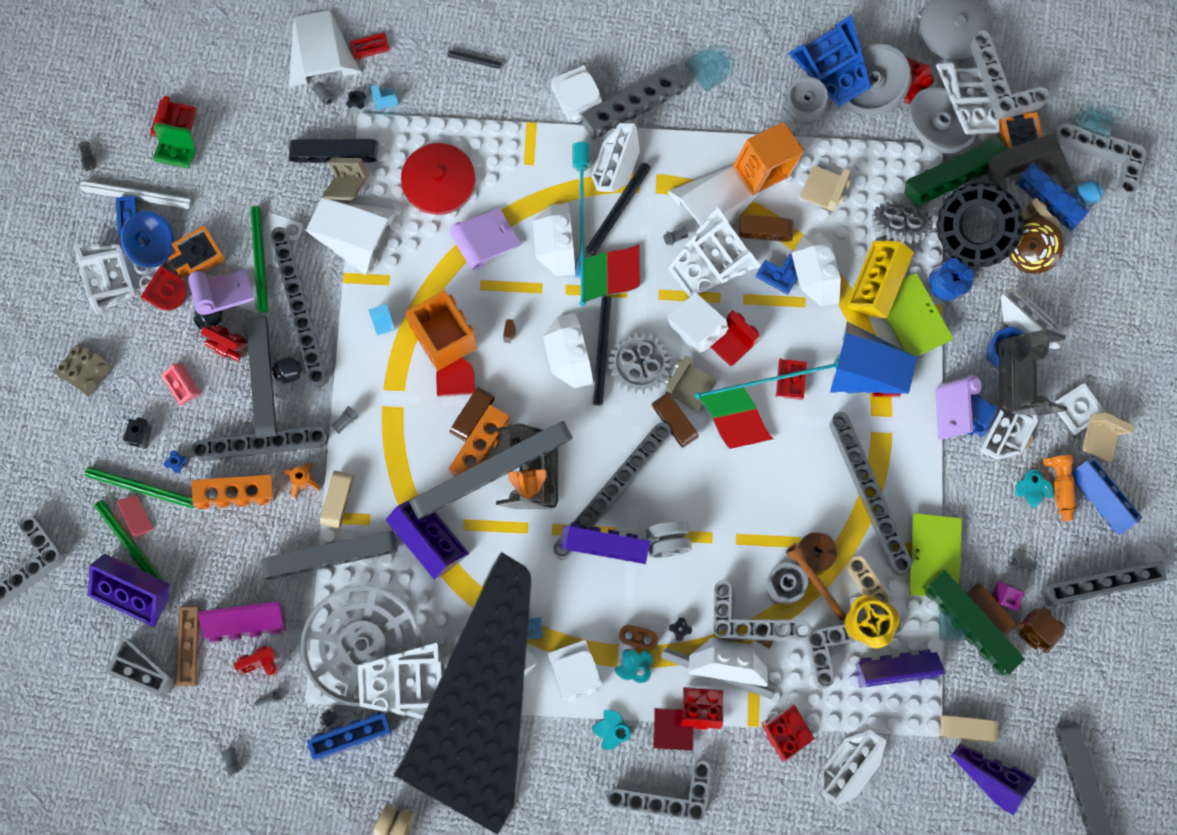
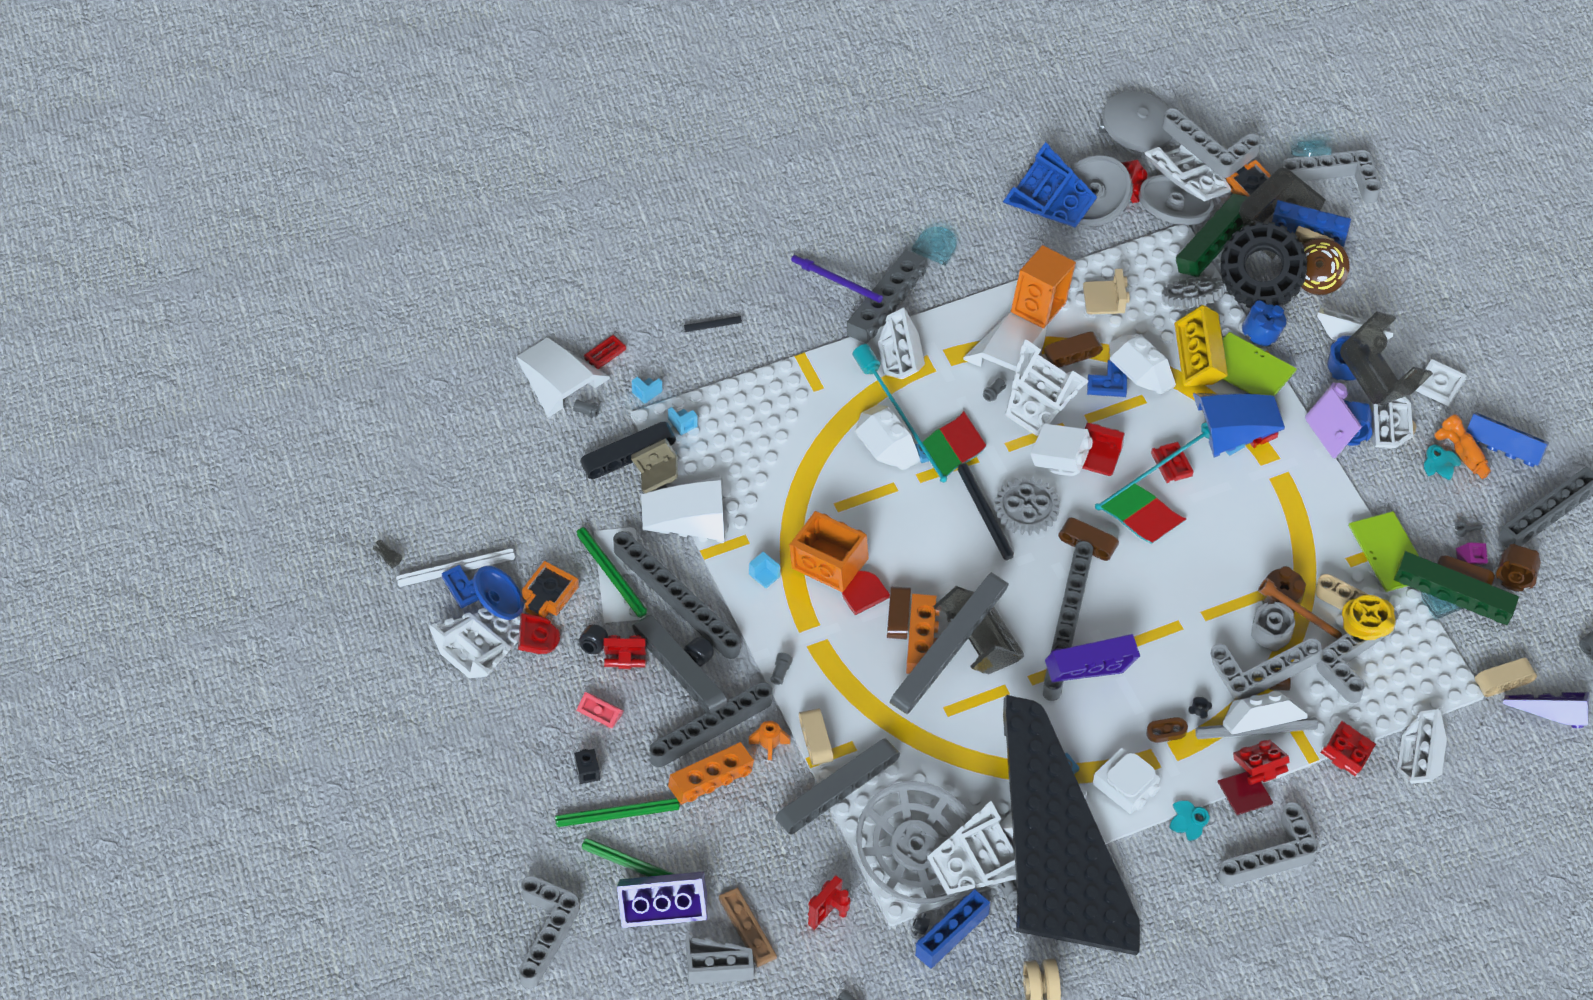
camera: 25 degrees left, 20 degrees down
(83, 369) = (499, 732): dark tan bracket -> none
(135, 515) = (626, 839): coral slope -> none
(173, 114) = (454, 488): red plate -> none
(174, 146) = (471, 505): green bracket -> none
(176, 467) = (637, 781): blue plate -> none
(219, 292) = (593, 611): lavender door -> none
(243, 621) = (790, 876): magenta slope -> none
(269, 698) = (856, 934): dark grey hand -> none
(352, 95) = (620, 397): black plate -> none
(394, 143) = (682, 420): none -> medium azure panel
(427, 539) = (921, 732): dark purple slope -> none
(438, 178) = (742, 433): red dish -> none
(484, 238) = (817, 464): lavender door -> none
(509, 331) = (889, 529): reddish brown tile -> none
(528, 481) = (986, 639): orange brick -> none
(568, 352) = (957, 523): white wedge -> none
(575, 93) = (828, 311): white brick -> none
(586, 41) = (809, 265): none -> dark purple bar
(618, 208) = (926, 394): black axle -> none
(632, 664) = (1178, 755): teal plate -> none
(668, 539) = (1148, 632): light grey wheel -> none
(688, 381) = (1081, 503): dark tan bracket -> none
(807, 100) = (1044, 228): light grey wheel -> none
(870, 502) = (1291, 515): dark grey beam -> none
(899, 669) = (1415, 652): dark purple slope -> none
(1088, 192) = (1341, 205): dark azure head -> none
(1103, 434) = (1472, 389): tan bracket -> none

